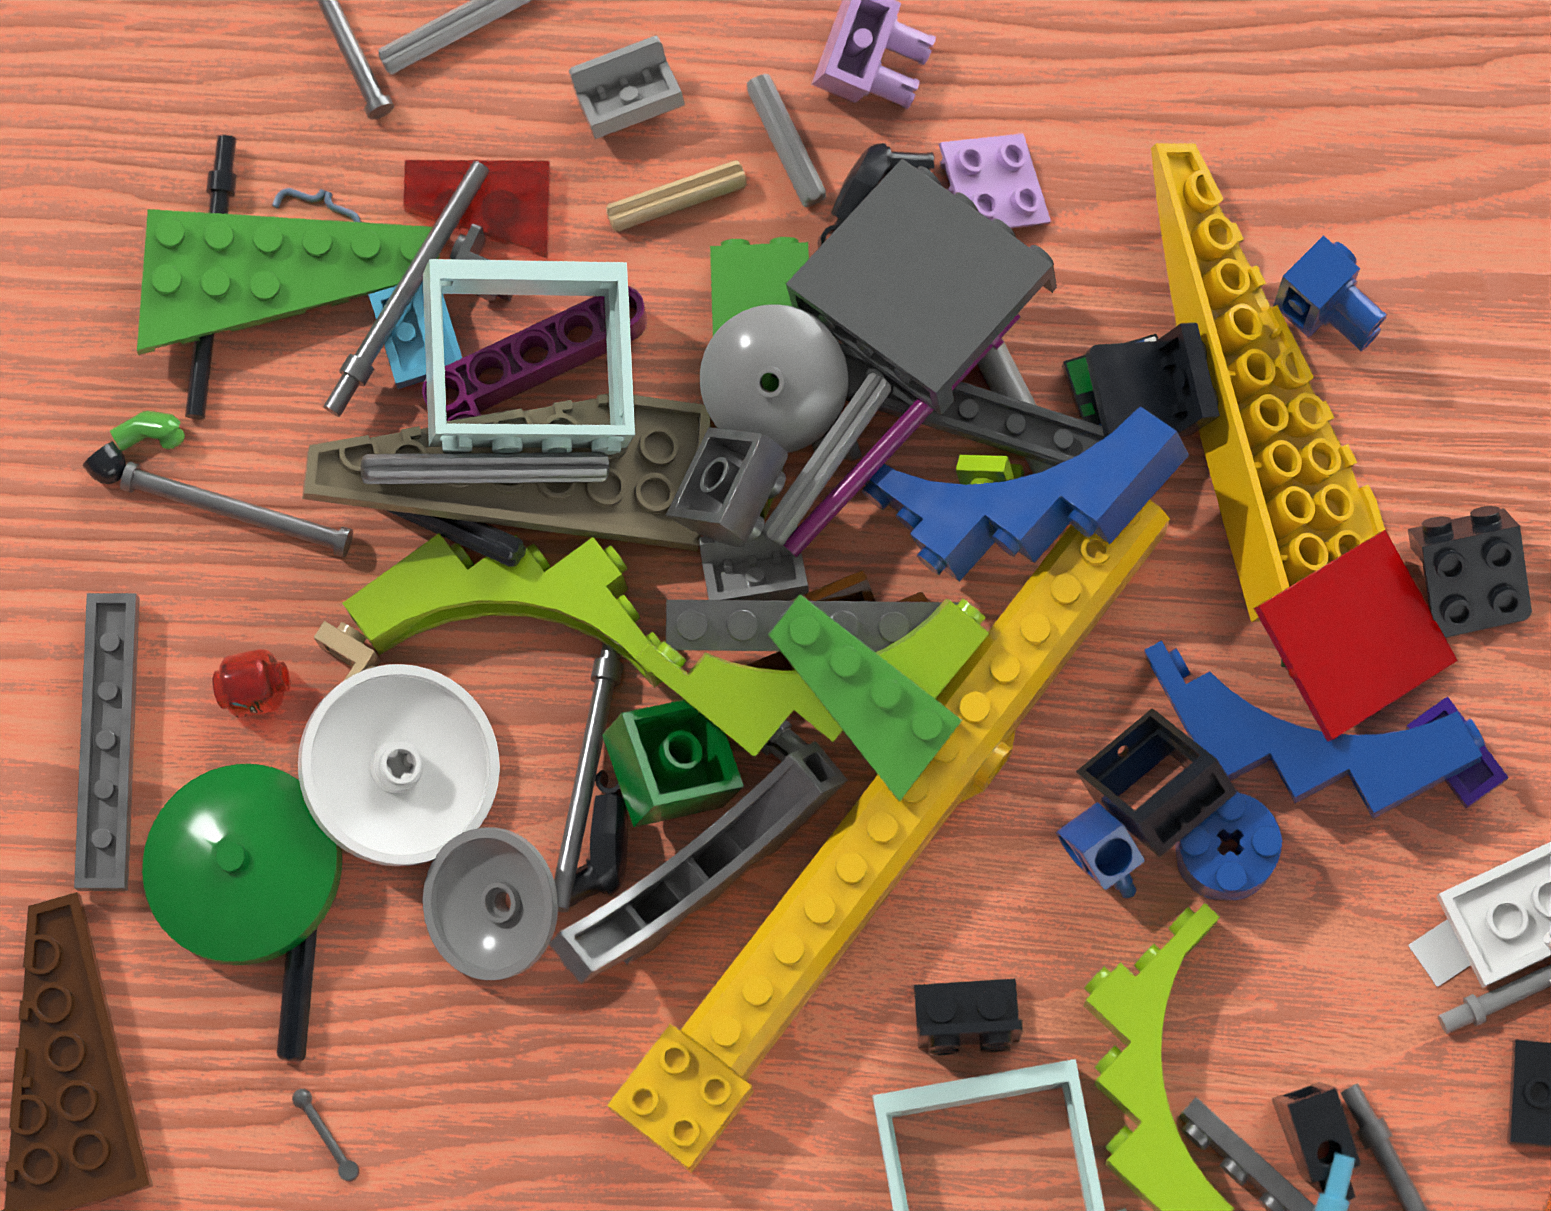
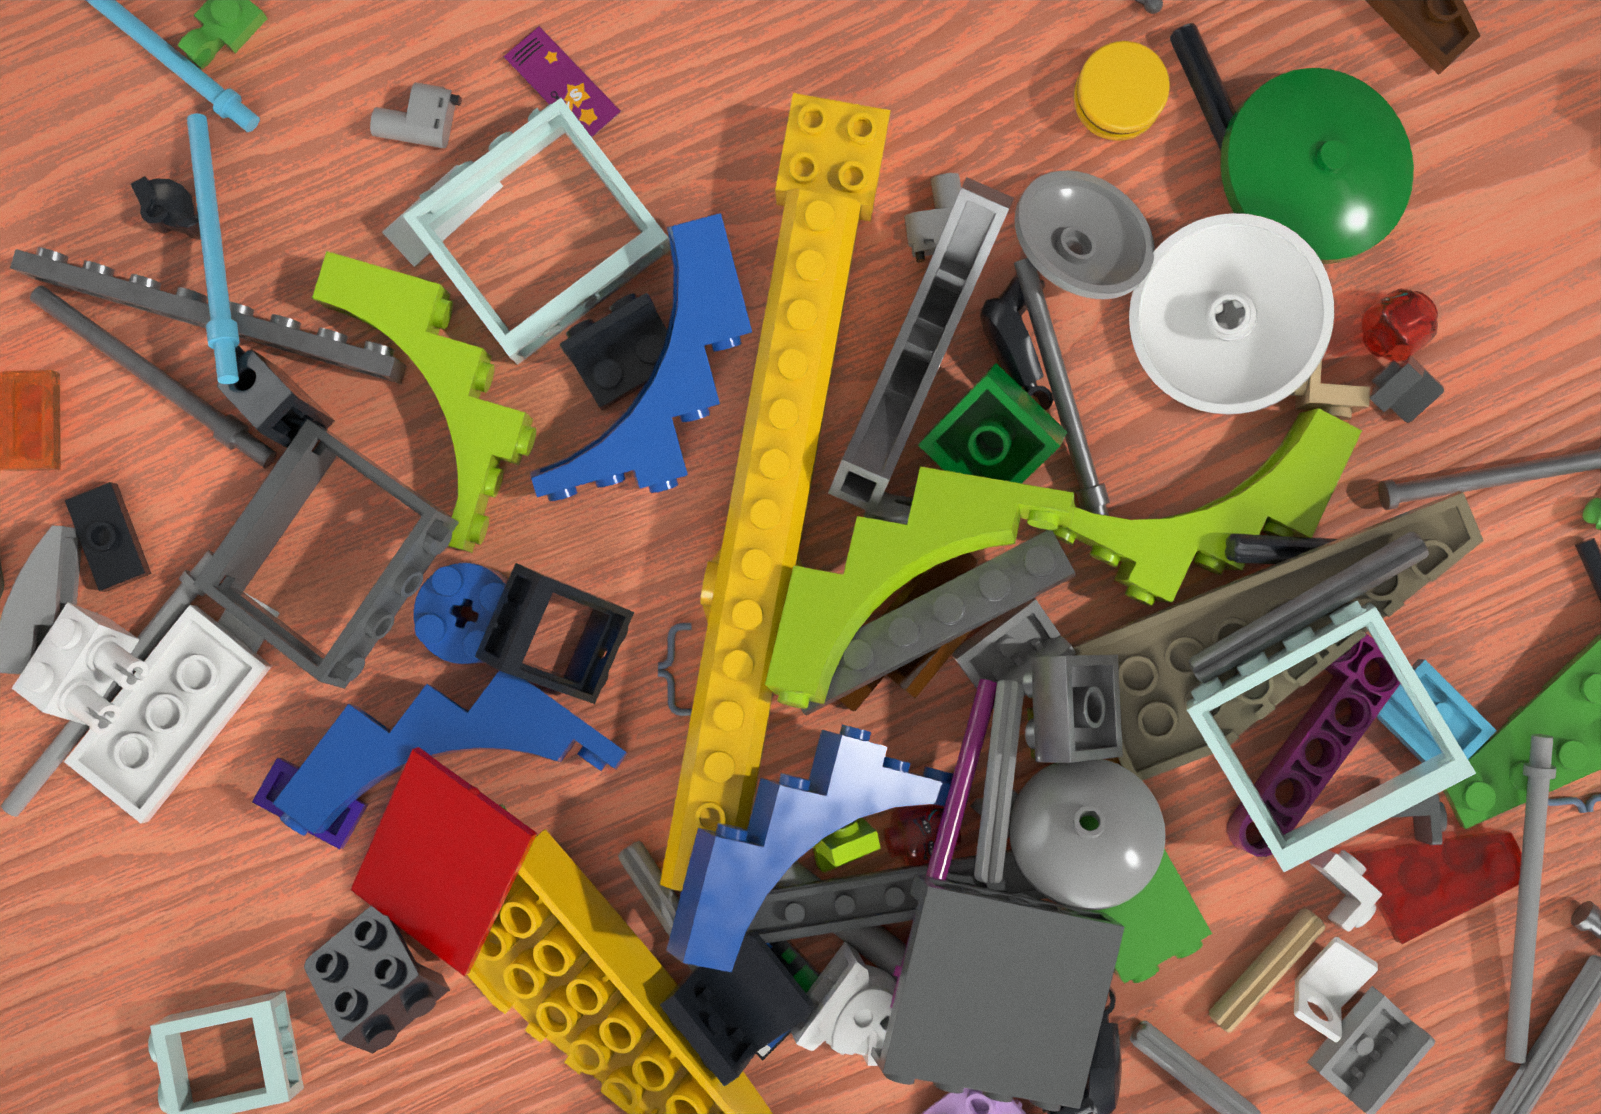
camera: 150 degrees right, 10 degrees up
(107, 742) = (1495, 213): flat silver plate -> none
(278, 625) = (1405, 388): none -> dark grey bracket
(357, 241) = (1539, 774): none -> light grey bar
(357, 367) = (1468, 654): flat silver bar -> none
(380, 1026) = (1121, 90): none -> yellow head
(563, 216) = (1346, 875): none -> white bracket
(617, 986) = (927, 226): none -> light grey piece
(630, 158) = (1330, 983): none -> white bracket
(873, 702) = (838, 565): bright green wing -> none
(924, 454) = (914, 833): none -> clear red head
(930, 955) = (643, 440): none -> blue arch
(1054, 338) = (848, 1007): none -> white piece
(1068, 719) = (668, 676): none -> sand blue piece
(1102, 849) = (578, 555): blue piece -> none
(1180, 528) = (647, 879): none -> light grey axle
(1373, 1031) = (269, 517): none -> dark grey window

